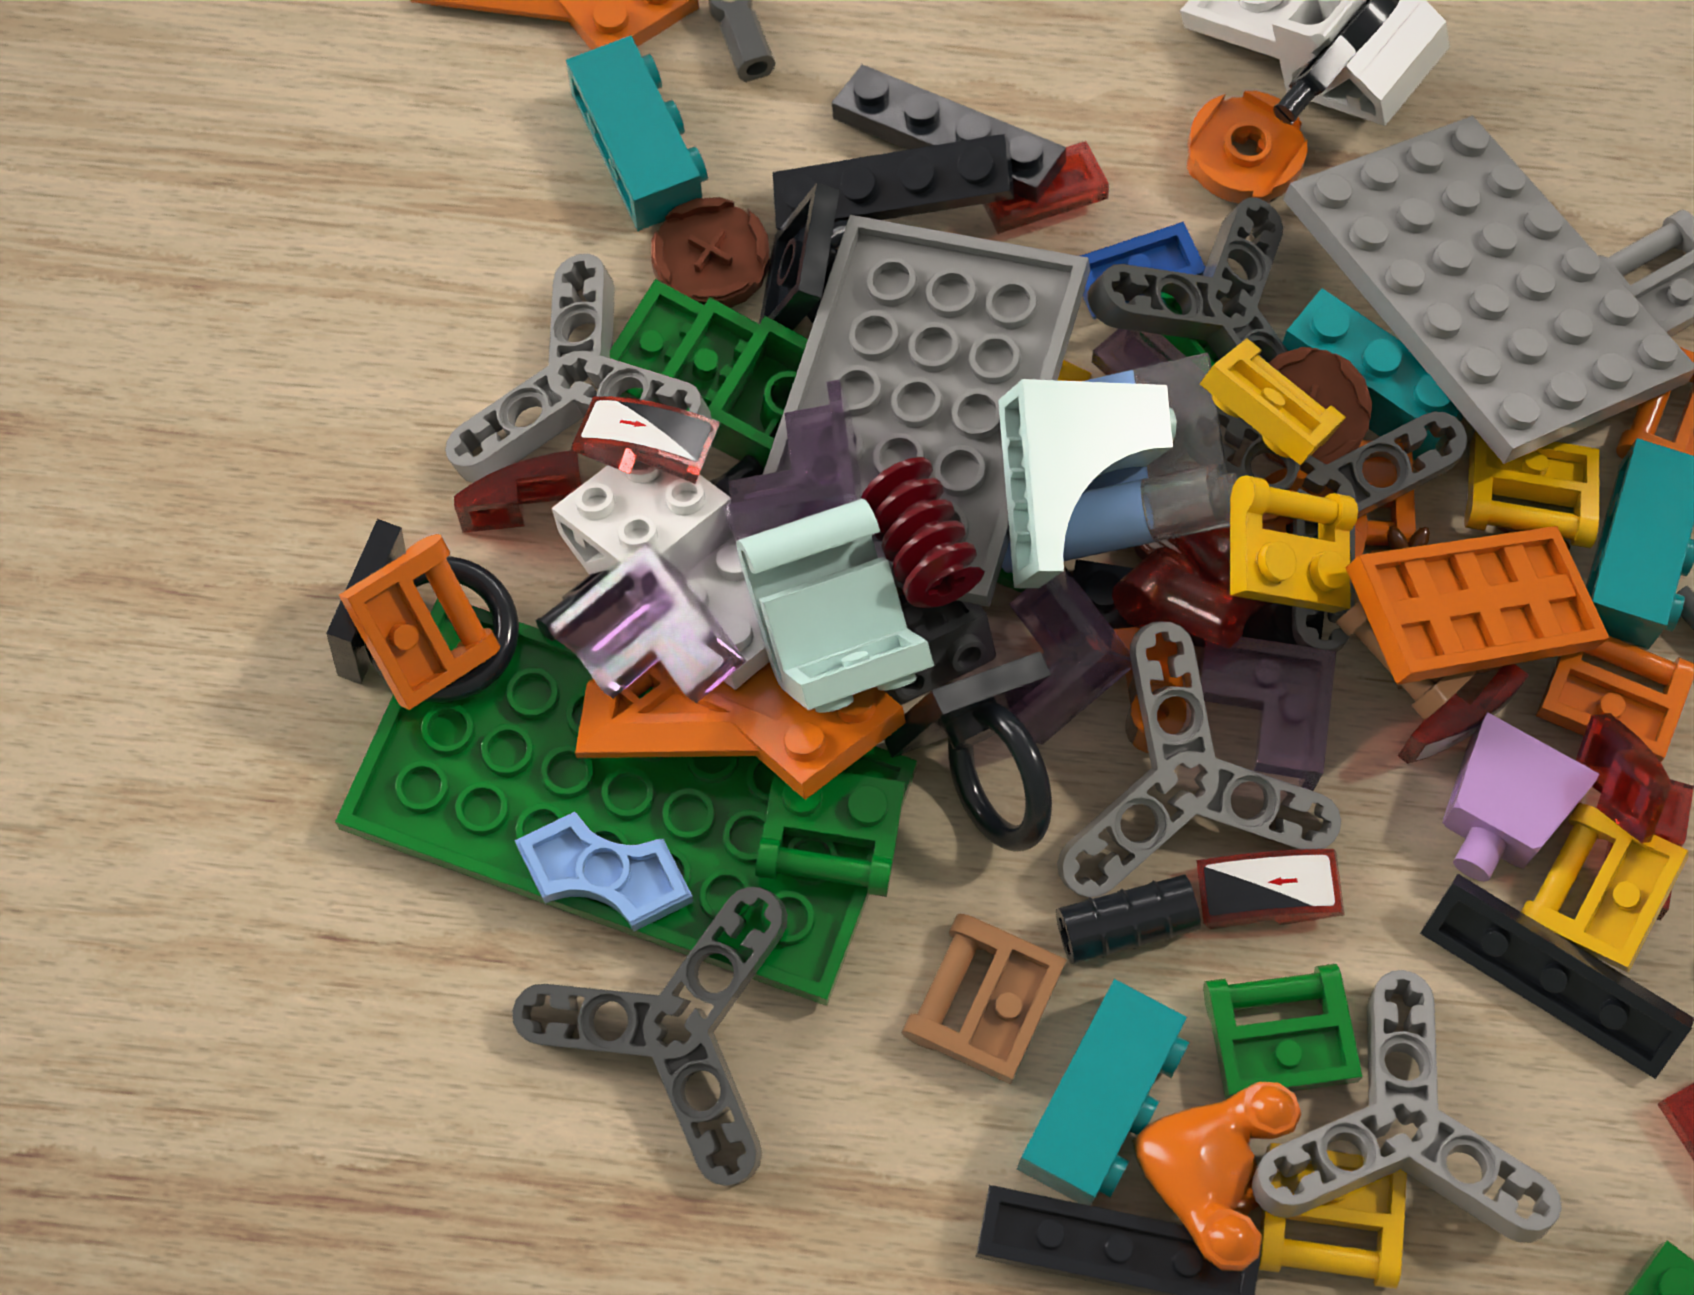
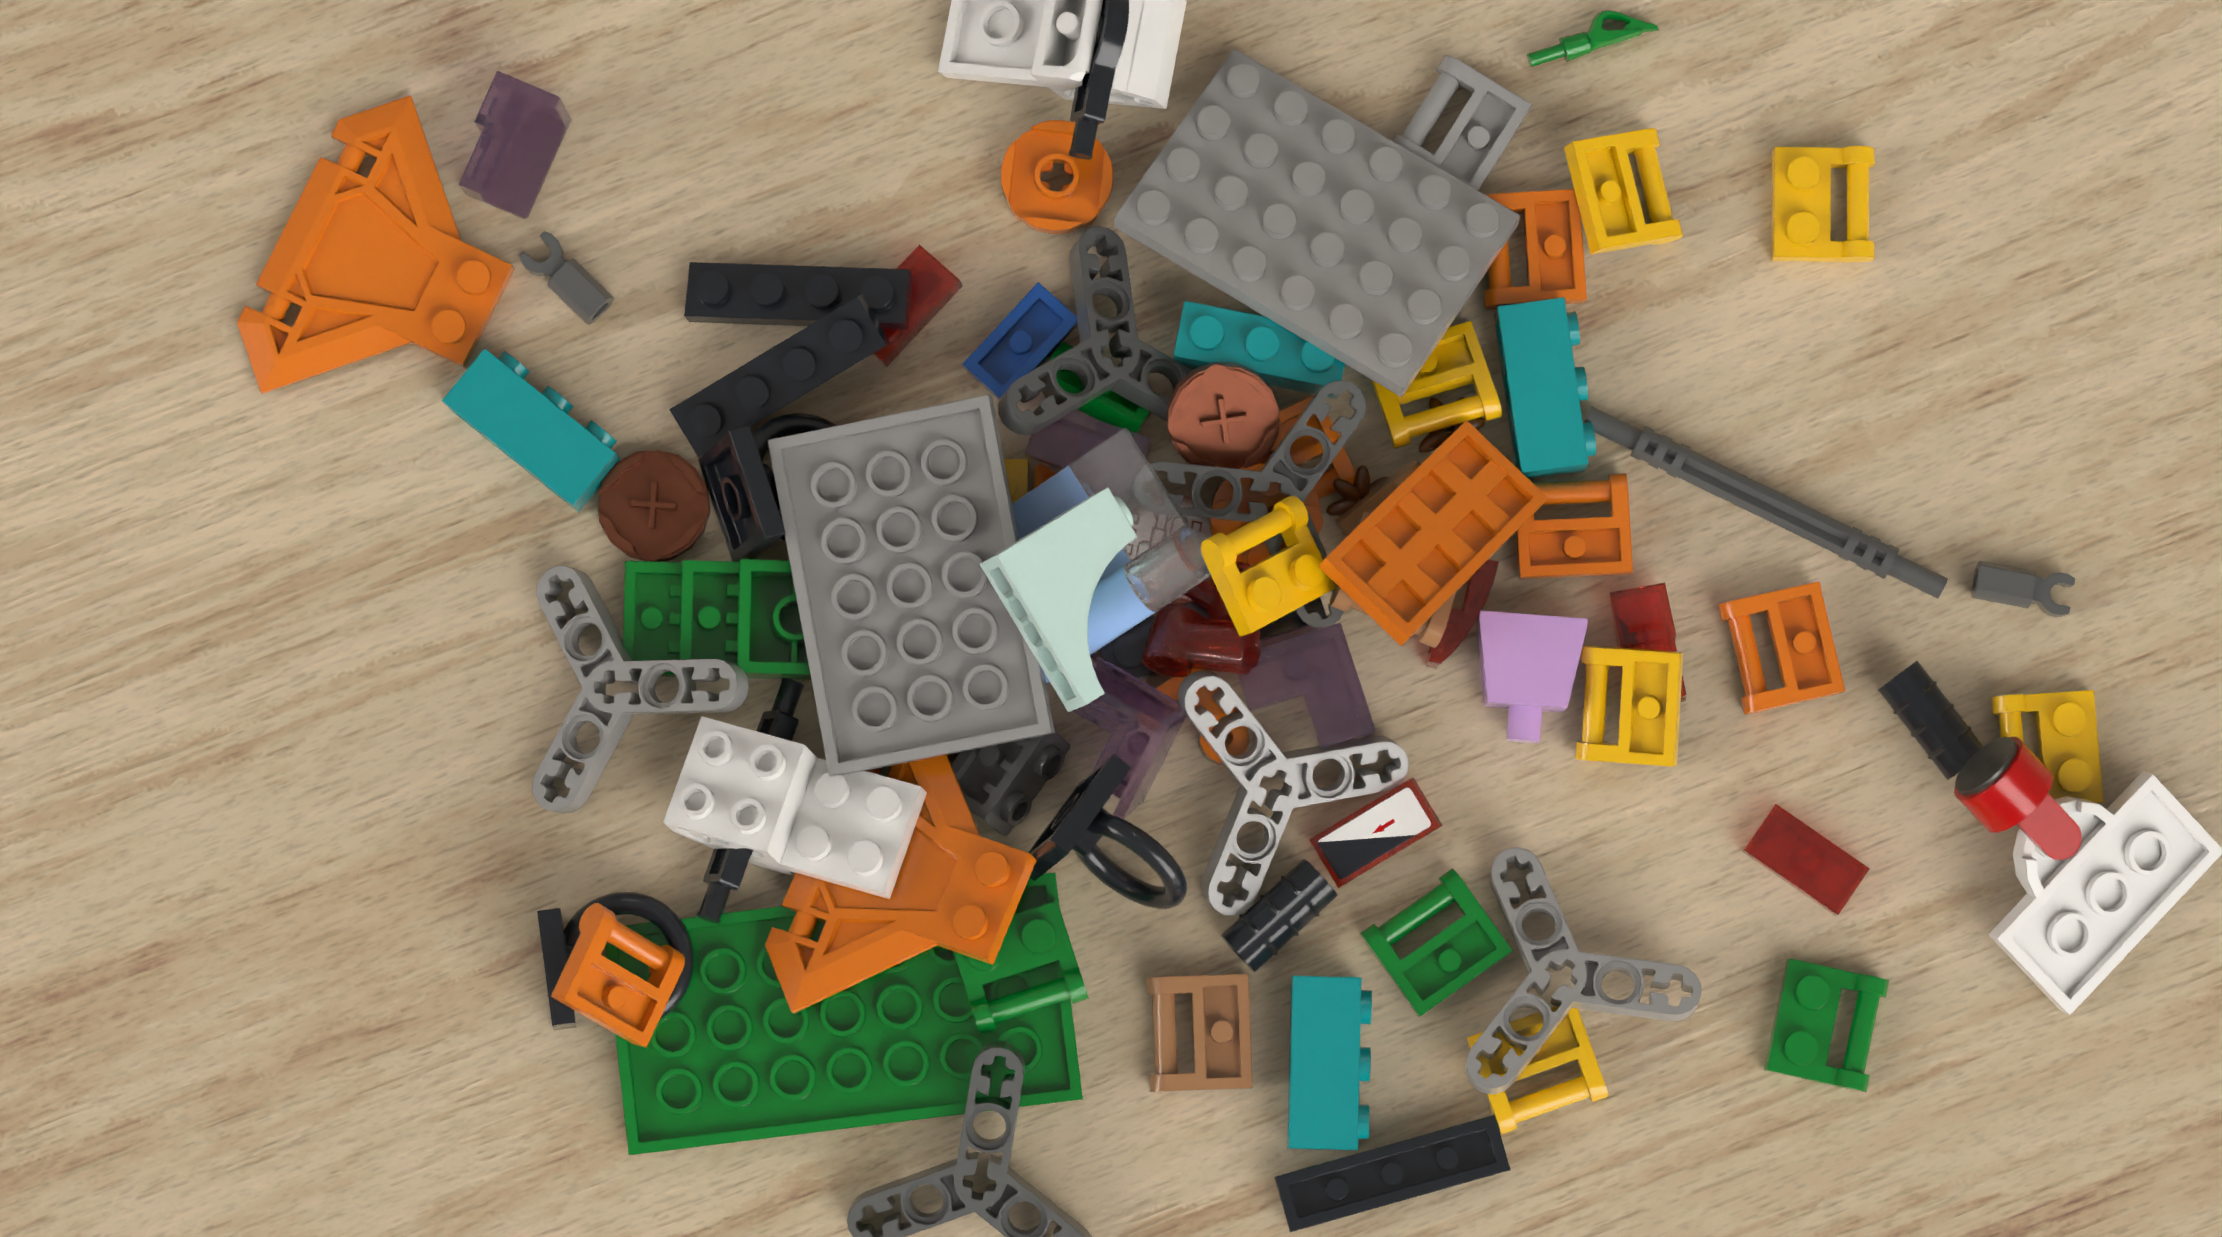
camera: 25 degrees left, 15 degrees up
(499, 497) = (606, 818): clear red slope -> none
(631, 879) = (888, 1084): light blue tile -> none
(645, 616) = (795, 878): clear purple panel -> none
(654, 433) = (708, 728): slope -> none
(821, 473) = (872, 704): clear purple panel -> none
(830, 608) = (940, 812): light aqua piece -> none
(920, 535) = (974, 714): dark red piece -> none
(1206, 1167) = (1427, 1079): orange head -> none
(1270, 403) = (1195, 447): yellow plate -> none
(1557, 976) = (1623, 794): black plate -> none
(1629, 777) = (1611, 612): clear red slope -> none

